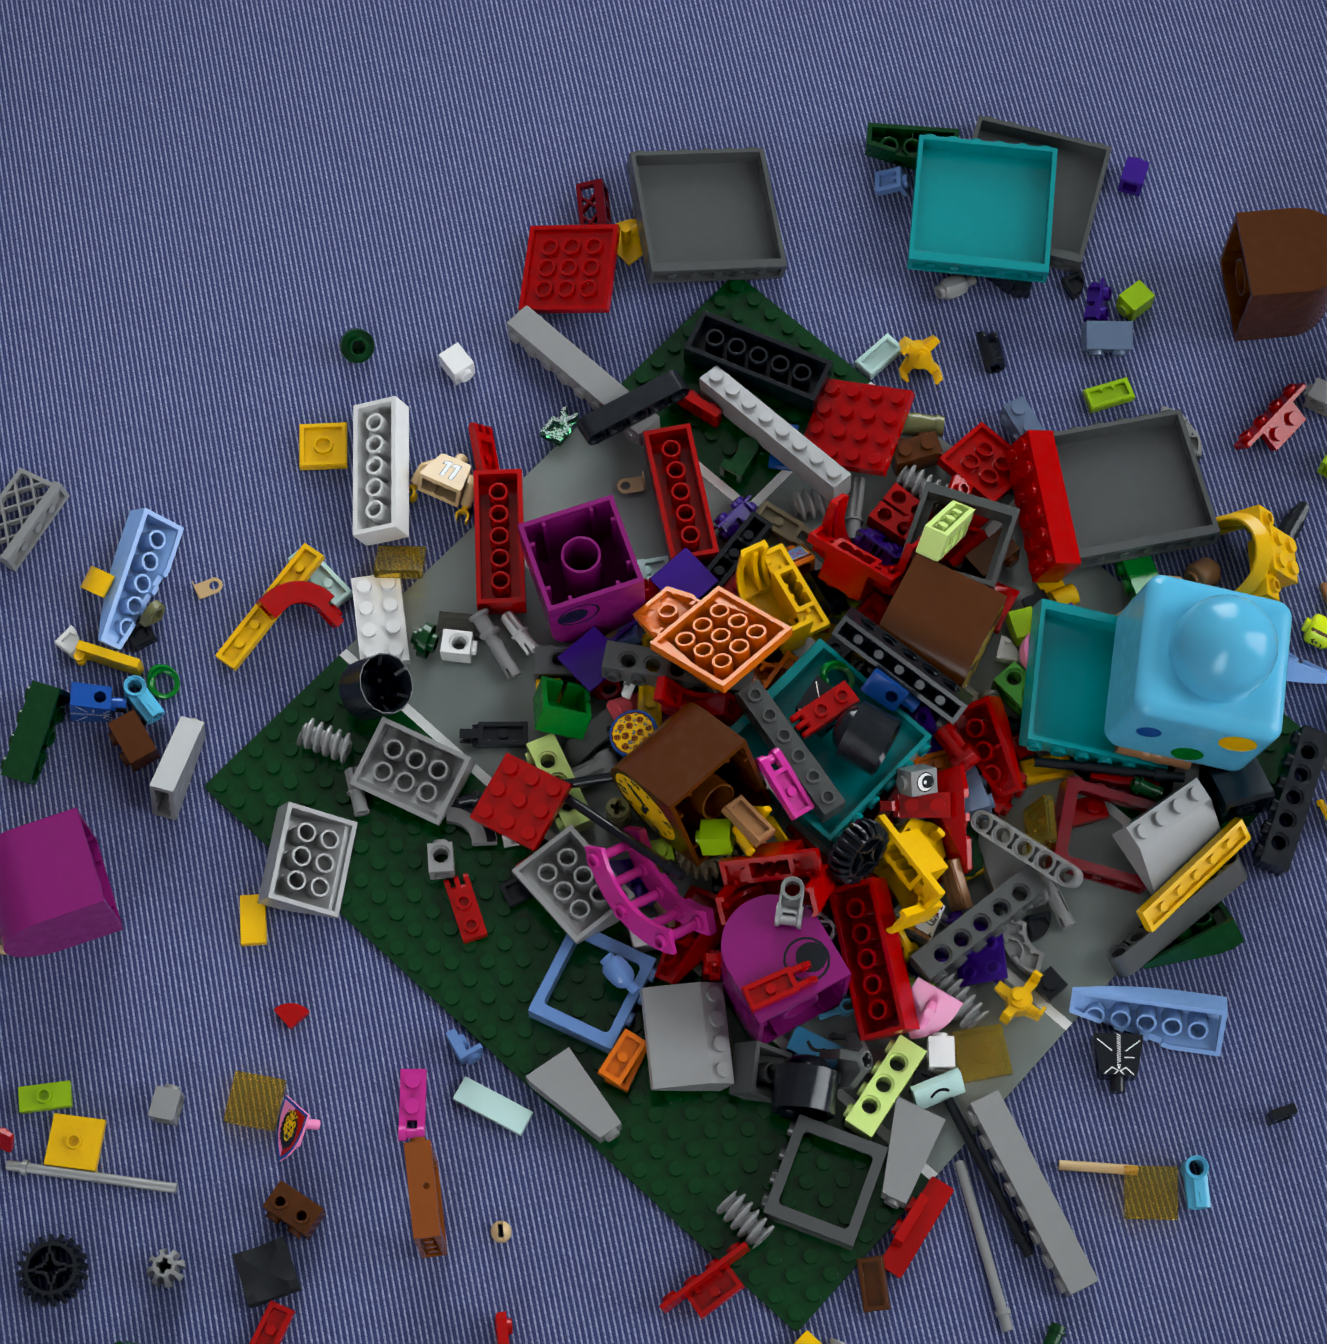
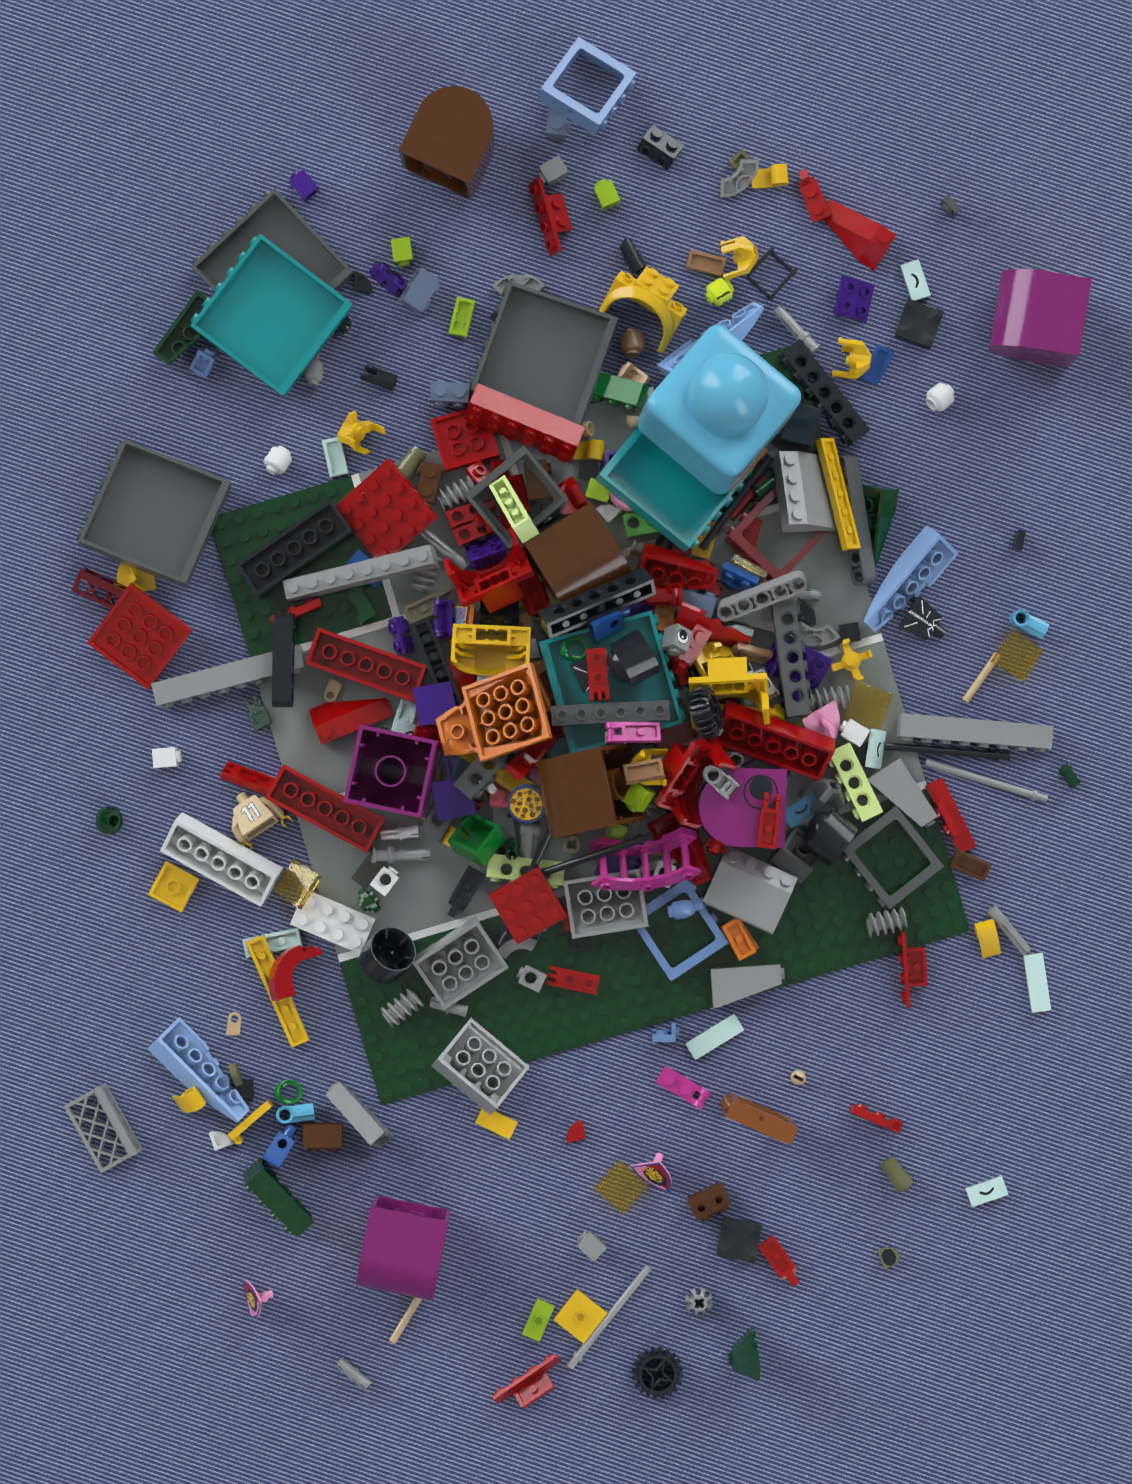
camera: 55 degrees left, 20 degrees up
(574, 753) = (511, 848): none -> dark green pin
(595, 487) = (343, 718): none -> red wedge
(788, 536) = (444, 624): none -> dark purple hinge
(838, 301) = (277, 460): none -> white head
(1028, 819) = (737, 578): none -> blue plate
(1083, 582) = (589, 429): none -> tan hinge

